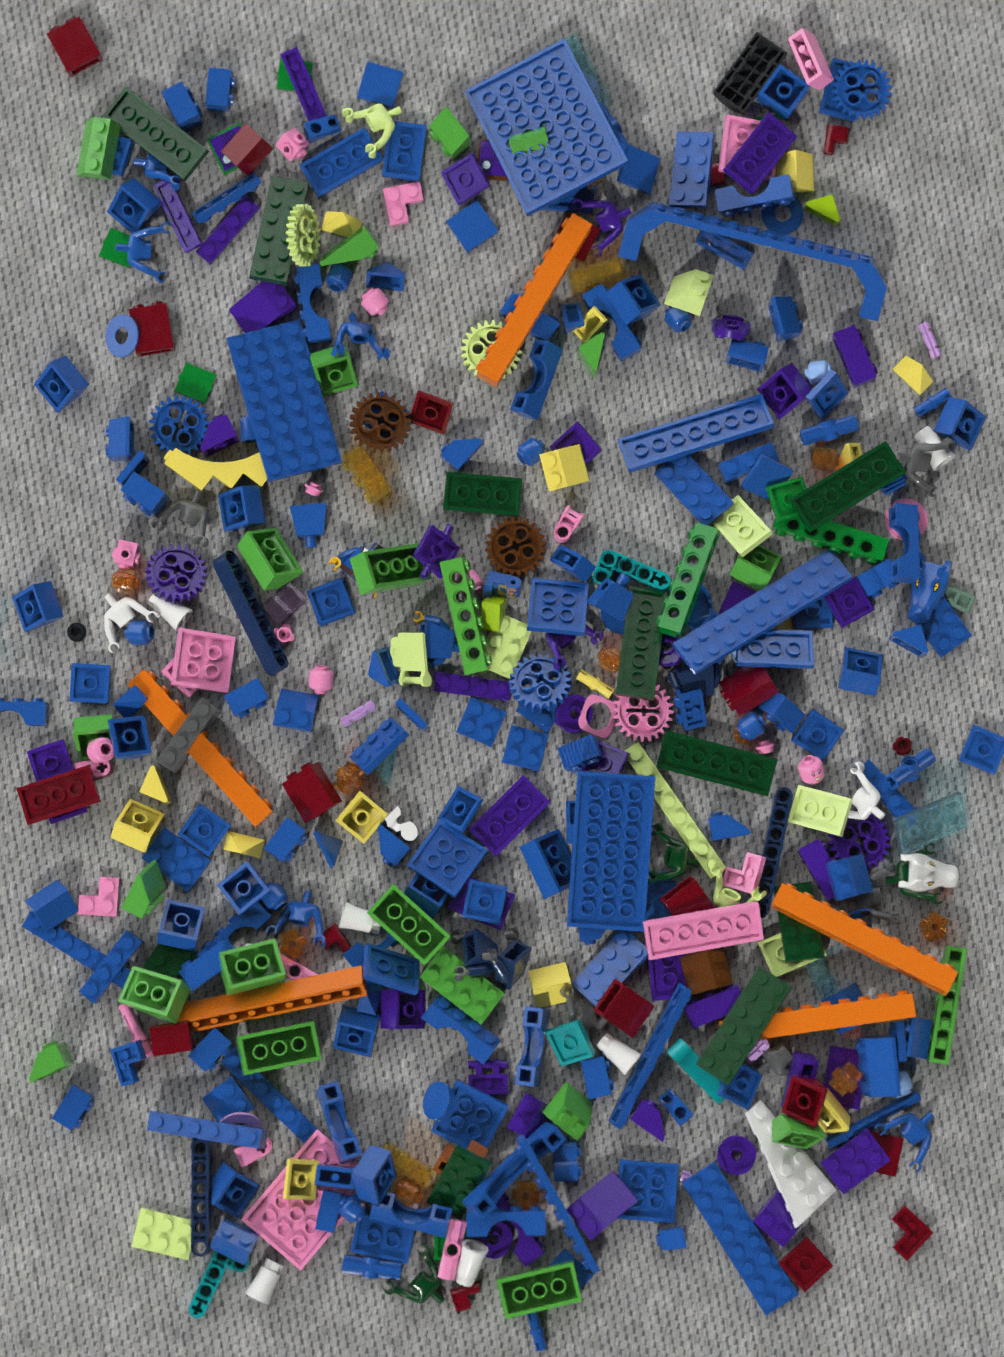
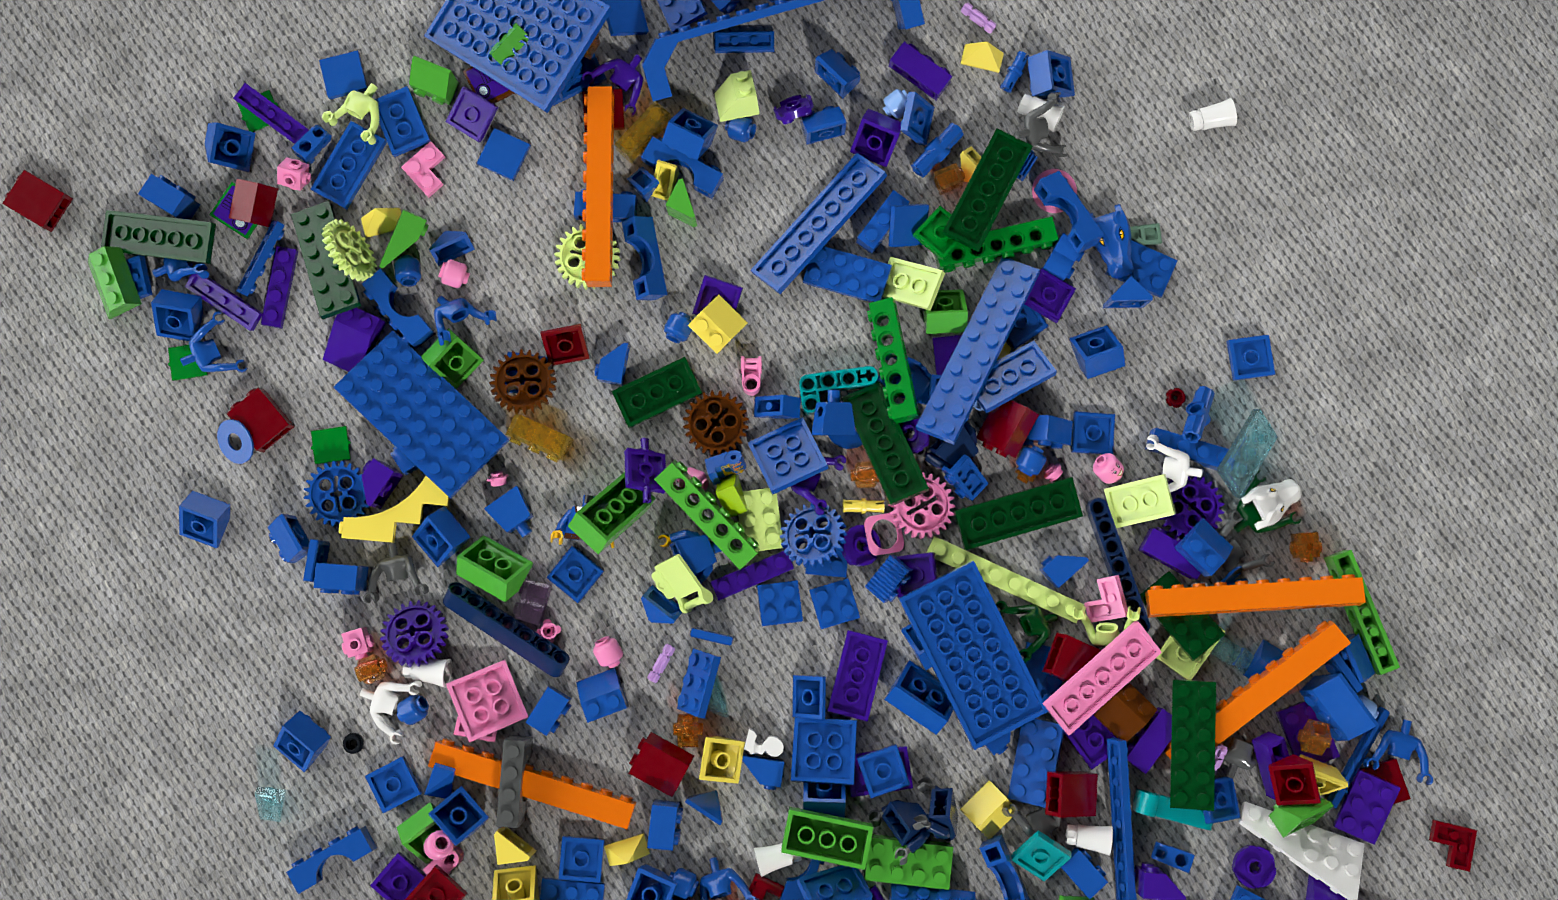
camera: 30 degrees left, 0 degrees up
(219, 89) = (195, 163): blue brick -> none
(254, 91) = (229, 146): none -> blue slope

